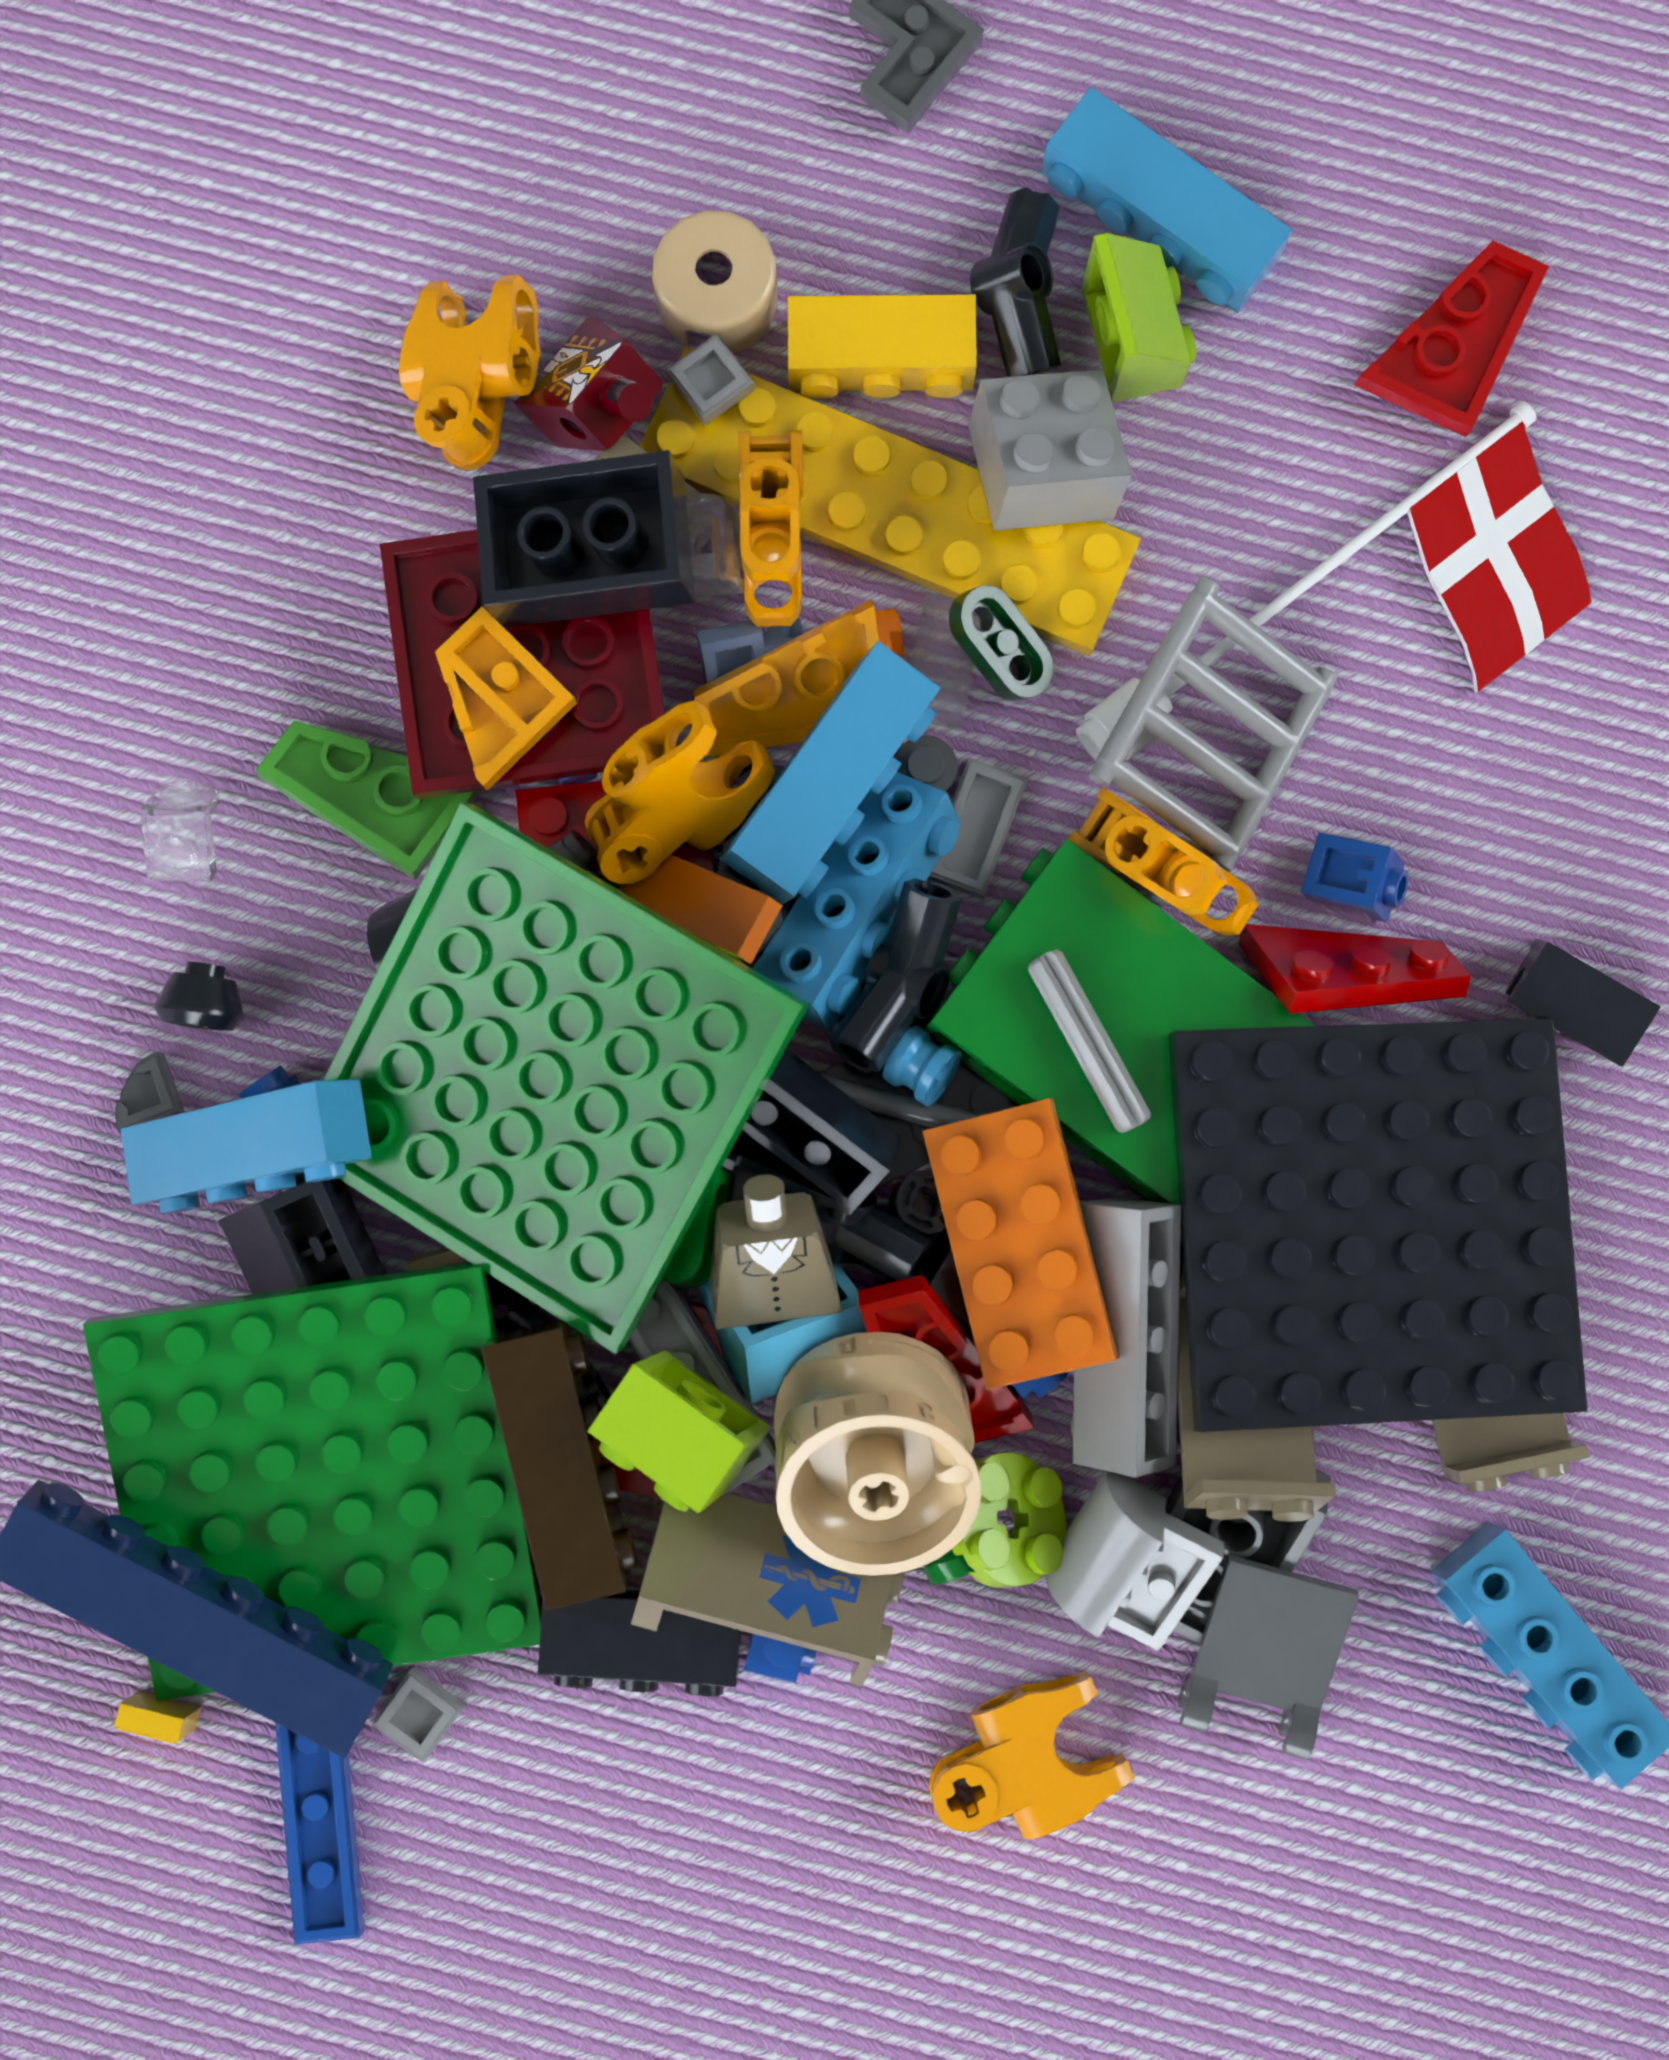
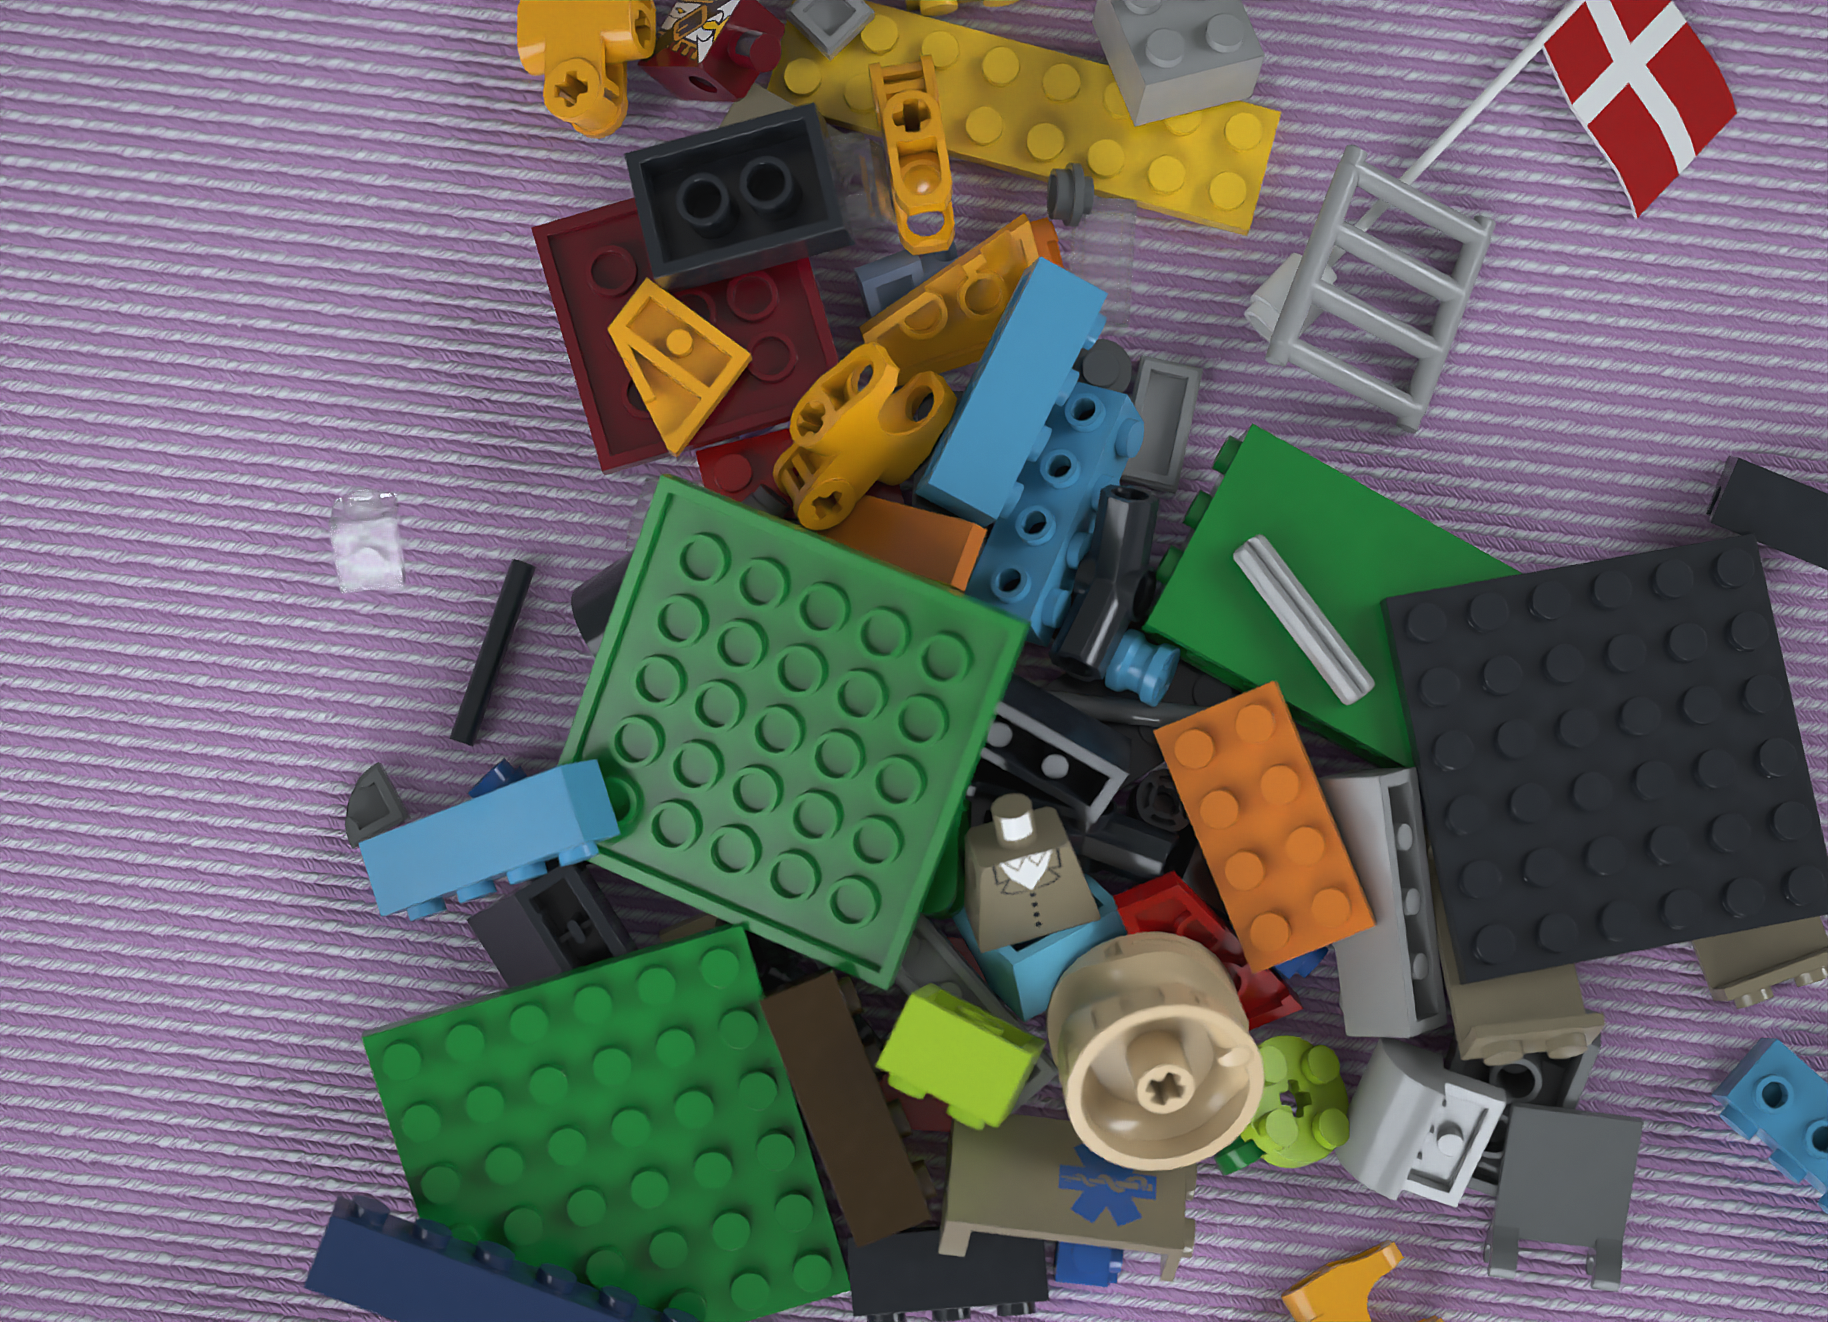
camera: 10 degrees left, 0 degrees up
(200, 999) = (415, 704): black cone -> none
(287, 959) = (492, 652): none -> black bar
(361, 793) = (544, 476): bright green wing -> none
(920, 588) = (1069, 194): none -> dark grey plate
(1001, 638) = (1156, 233): plate -> none
(1161, 862) = (1347, 433): light orange piece -> none
(1351, 970) = (1549, 513): red wing -> none
(1355, 876) = (1541, 419): blue bracket -> none

